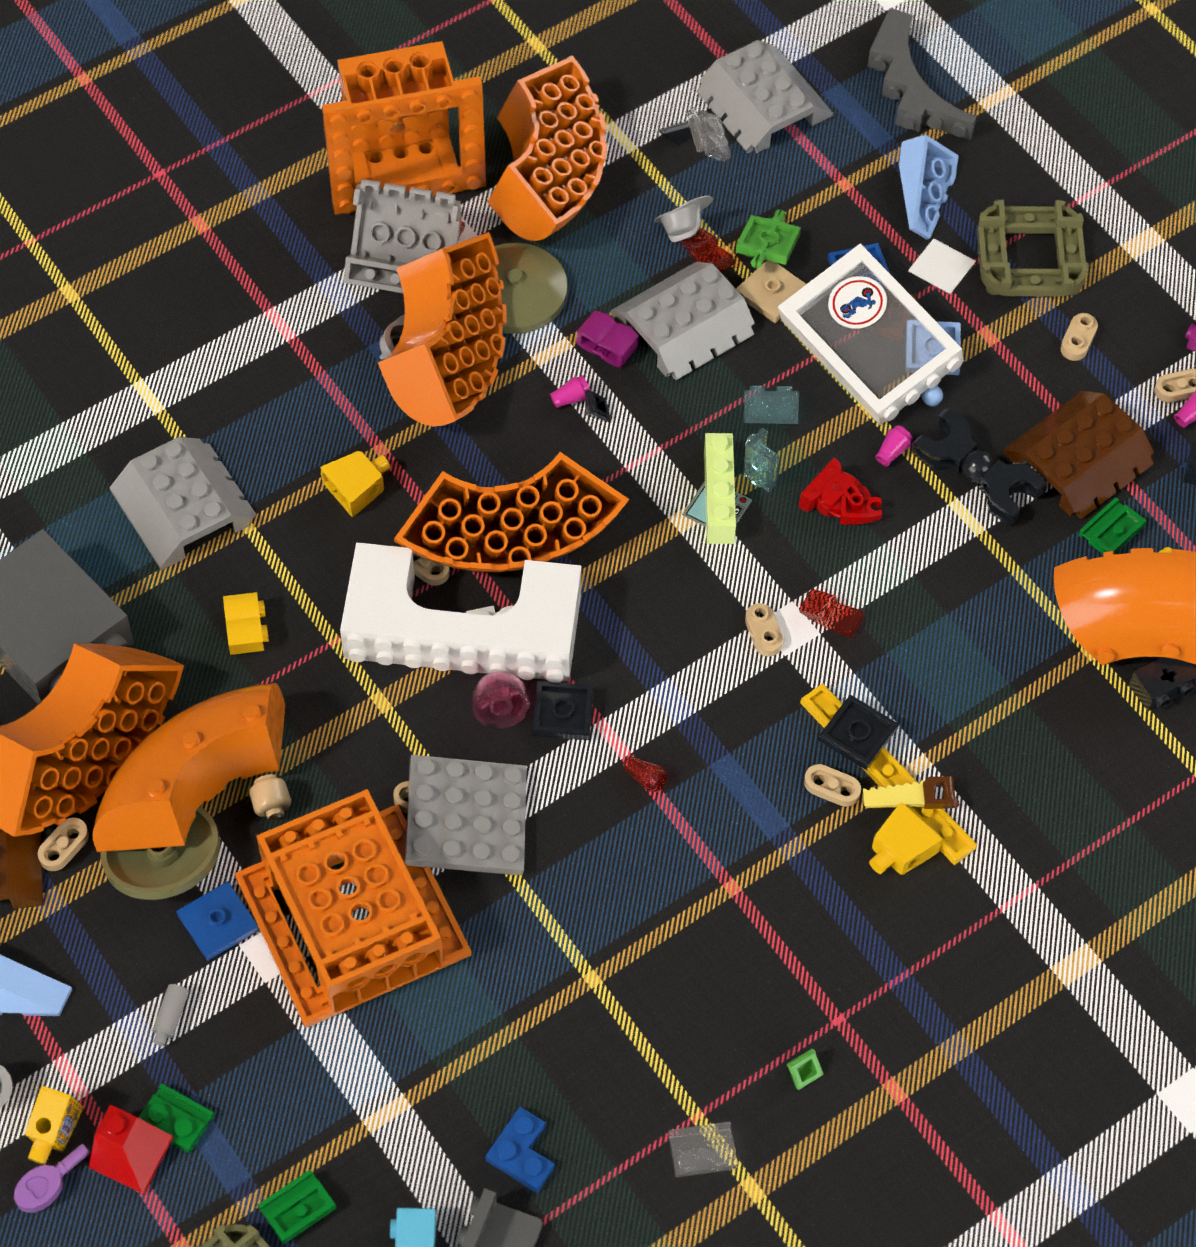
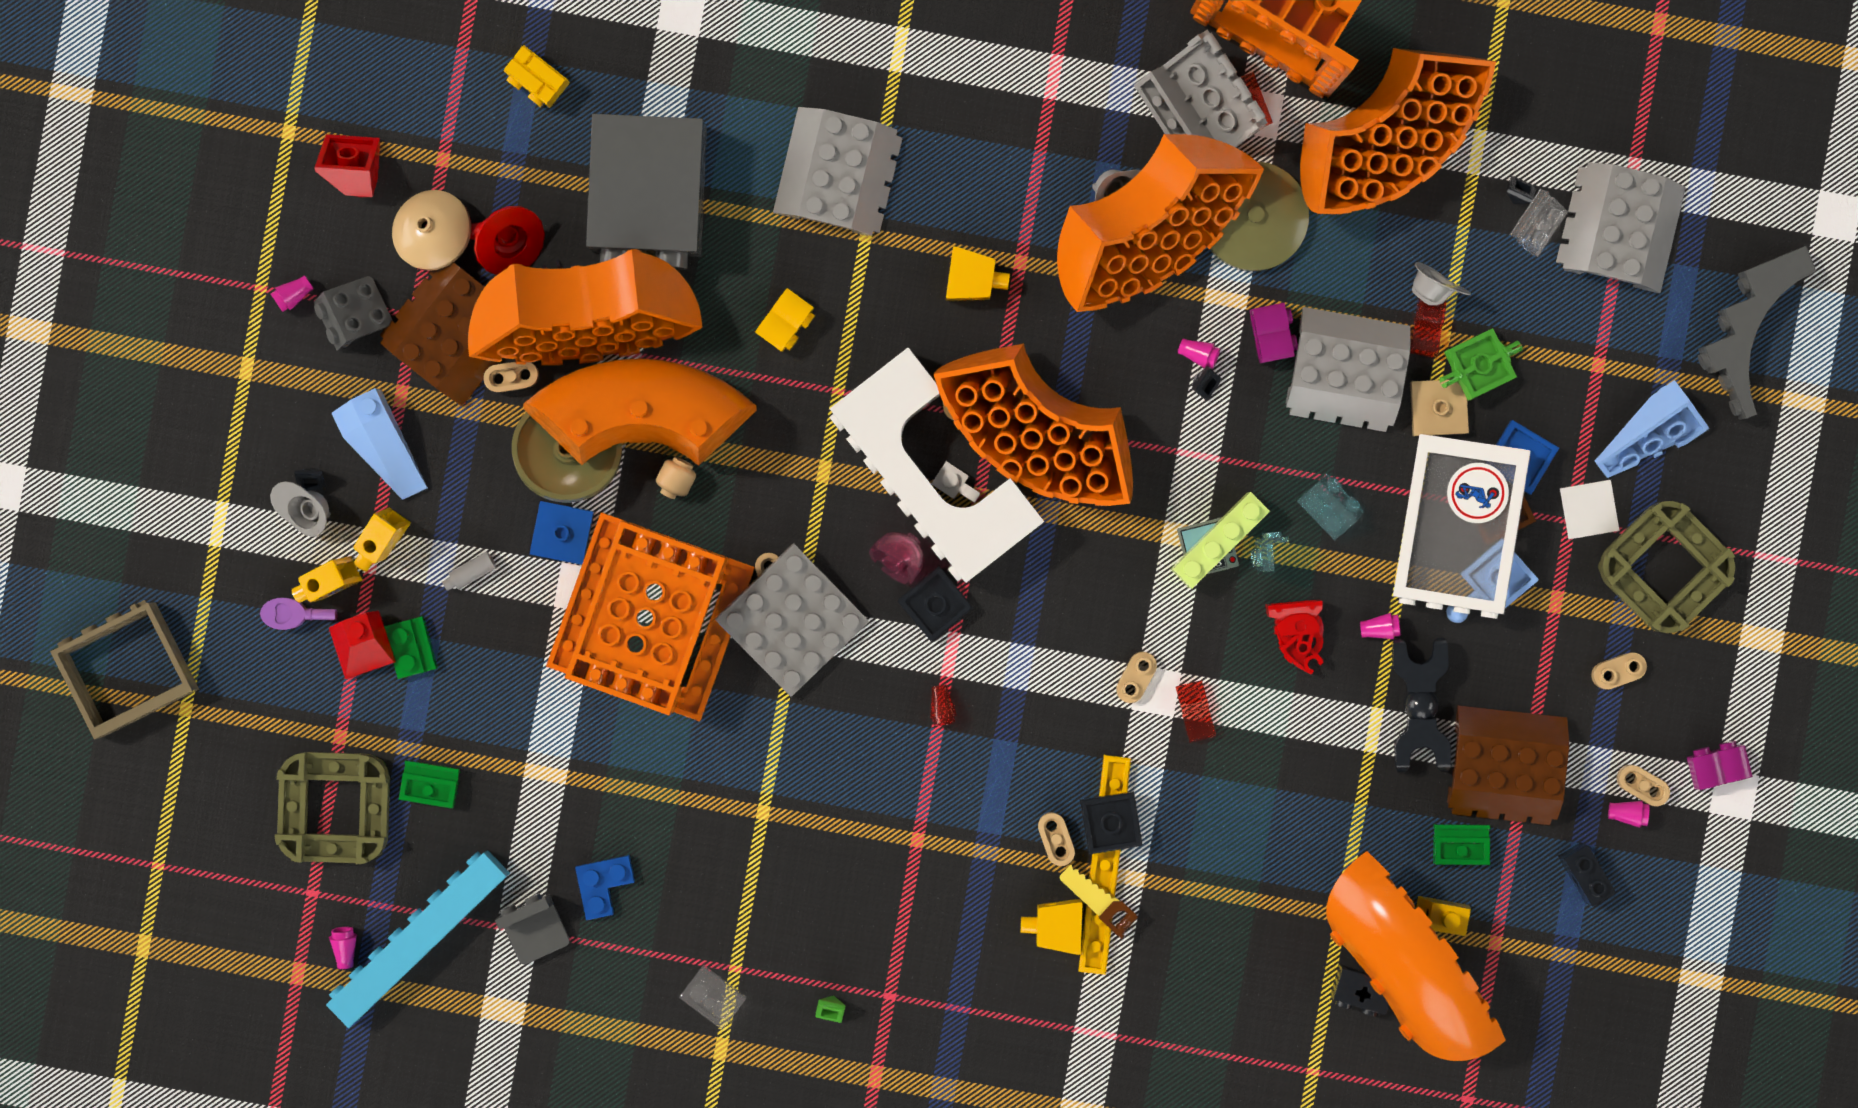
camera: 45 degrees right, 30 degrees up
(65, 1039) = (379, 537): none -> yellow torso

